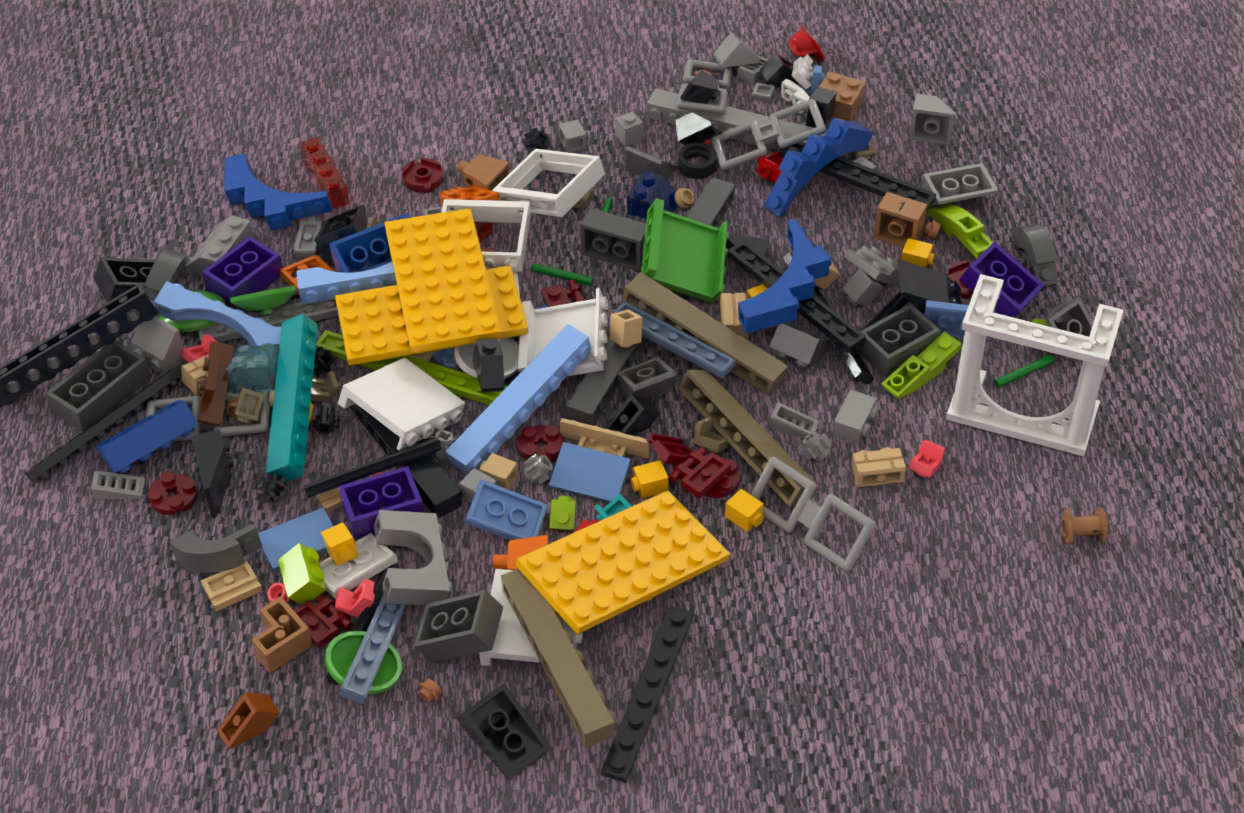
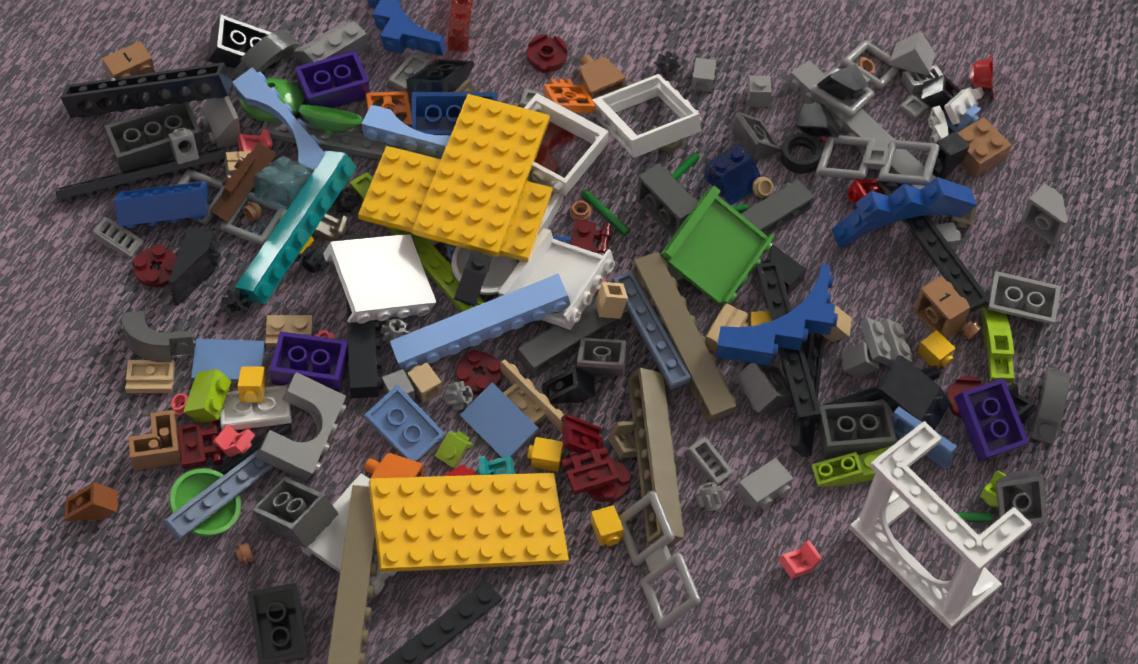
camera: 25 degrees right, 10 degrees up
(34, 330) = (128, 62): none -> medium nougat brick
(146, 376) = (185, 154): none -> light grey brick
(248, 405) = (258, 216): dark tan bracket -> none
(373, 467) = (318, 326): black axle -> none
(540, 280) = (580, 206): none -> nougat plate
(878, 467) = (752, 544): tan brick -> none

